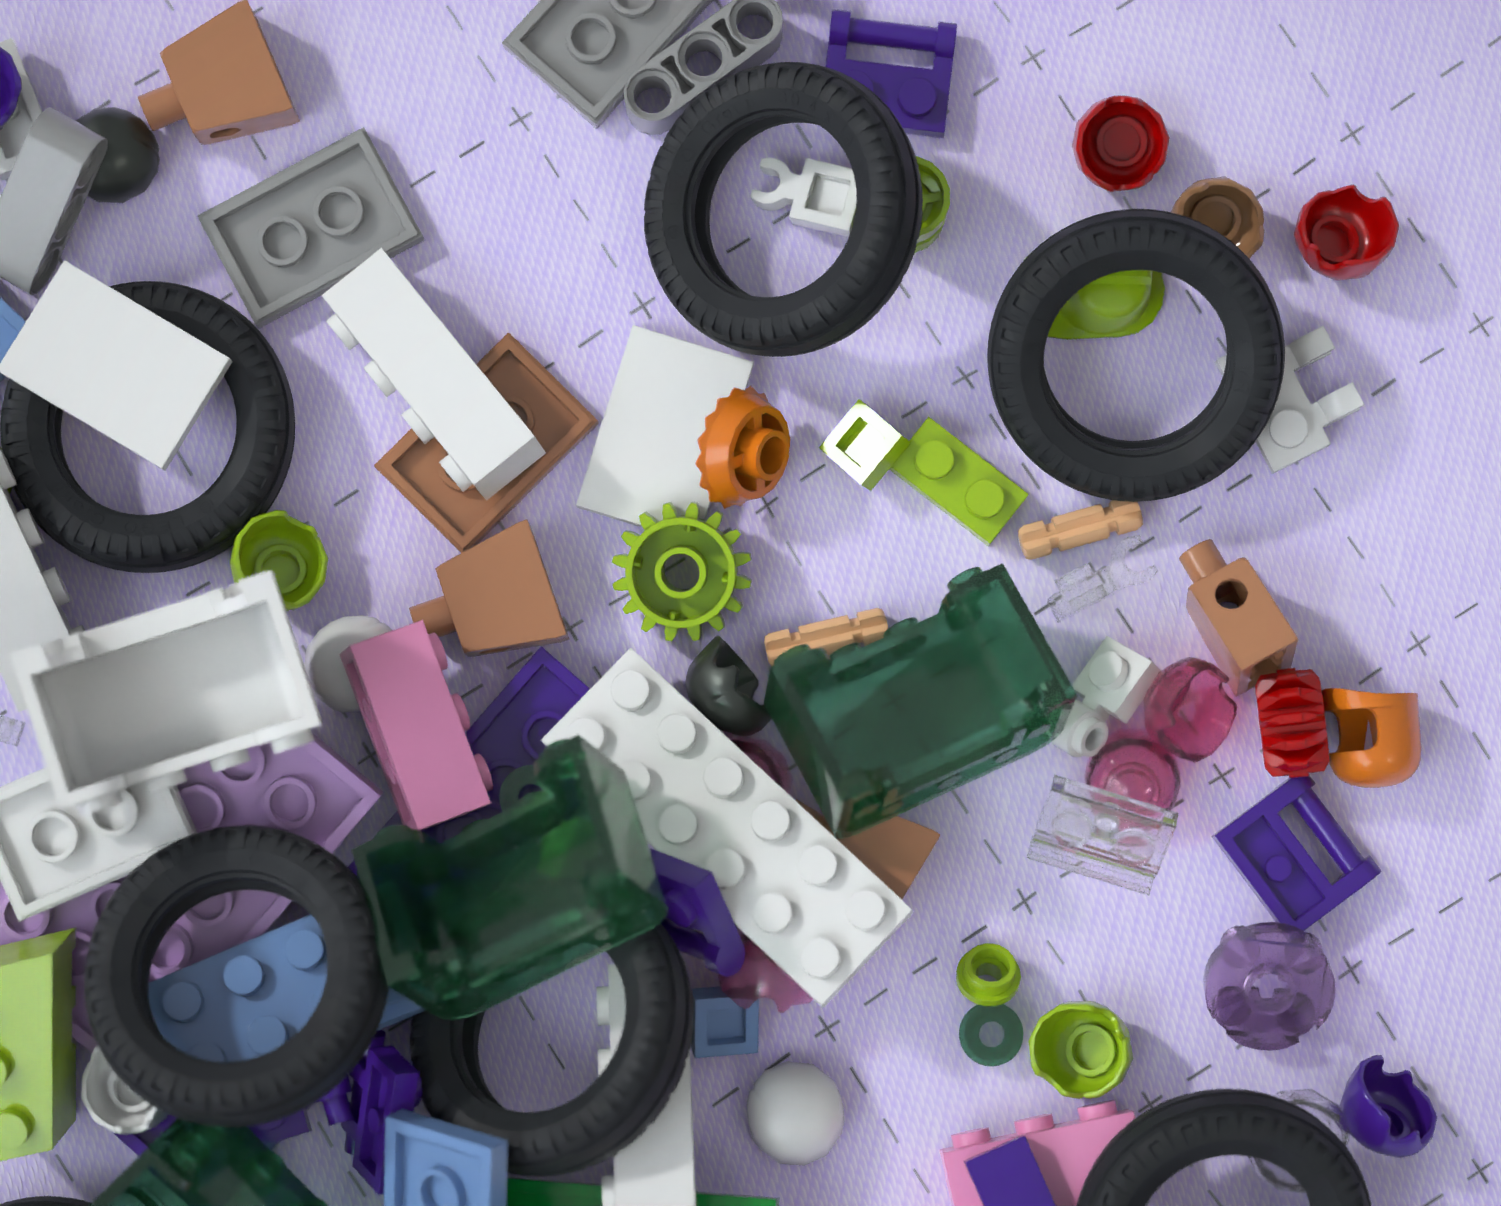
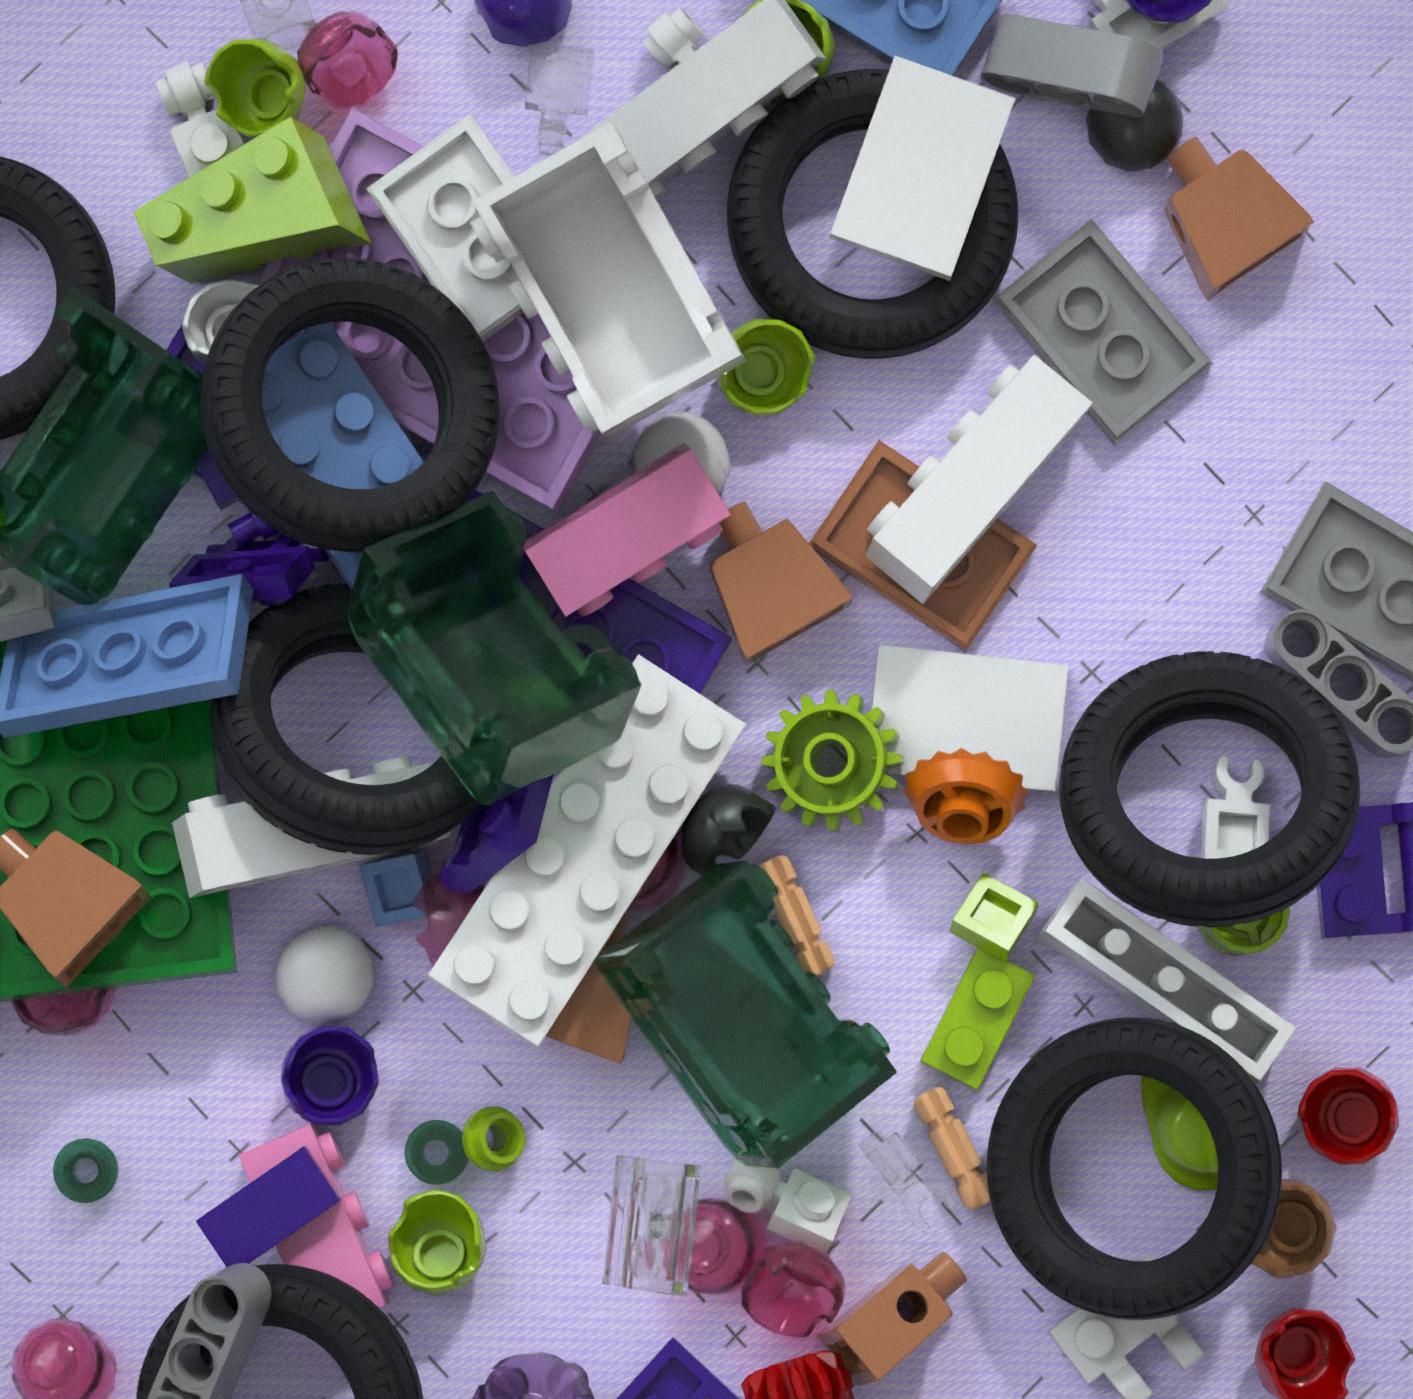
camera: 80 degrees right, 0 degrees up
(897, 1125) = (329, 1075): none -> dark purple hair
(954, 292) = (1163, 977): none -> white brick

